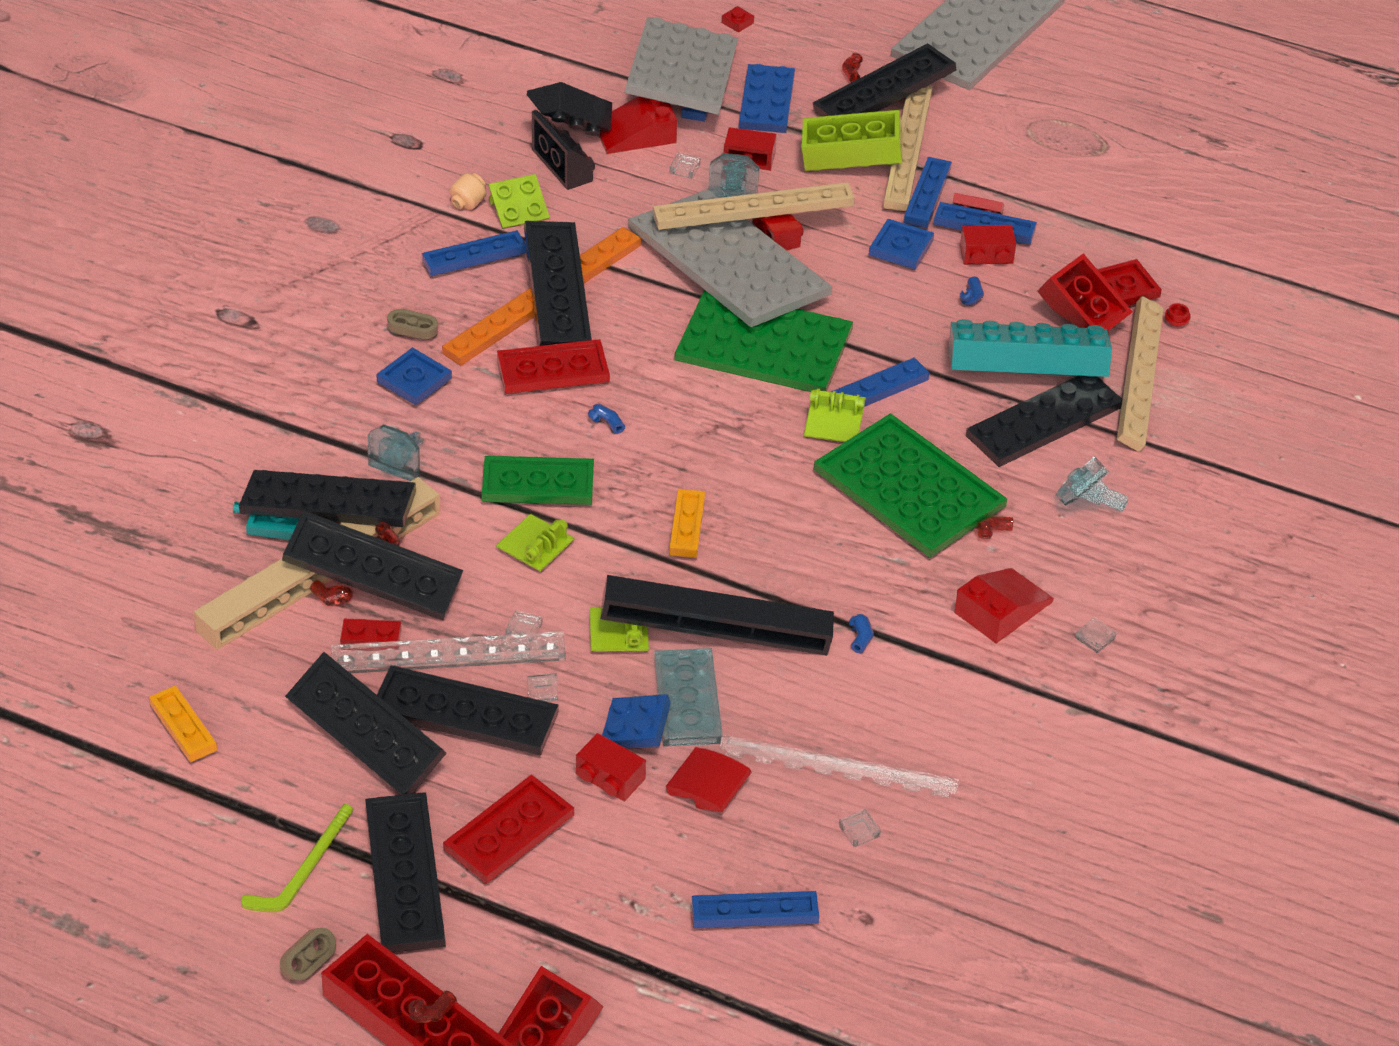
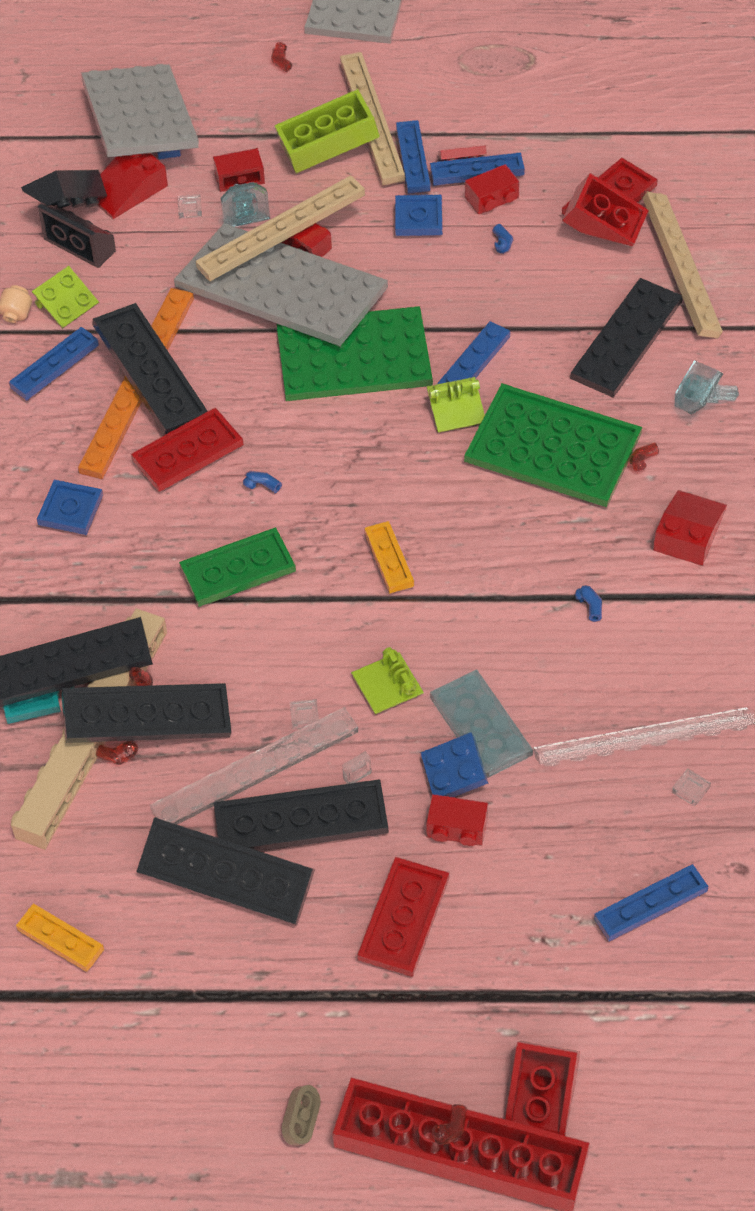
camera: 20 degrees left, 10 degrees up
(281, 902) = (245, 1072): lime piece -> none
(369, 631) = (174, 776): red plate -> none
(395, 451) = (100, 591): clear light blue piece -> none
(405, 872) = (338, 998): black plate -> none
(412, 324) = (39, 455): dark tan plate -> none
(536, 541) = (268, 627): lime hinge -> none
(708, 779) = (544, 795): red slope -> none
(717, 615) = (469, 638): black brick -> none
(737, 19) = (154, 44): red plate -> none
(767, 98) = (223, 114): blue plate -> none
(888, 83) = (323, 66): black plate -> none
(1029, 348) = (584, 278): teal brick -> none
(1177, 315) = (681, 197): red plate -> none

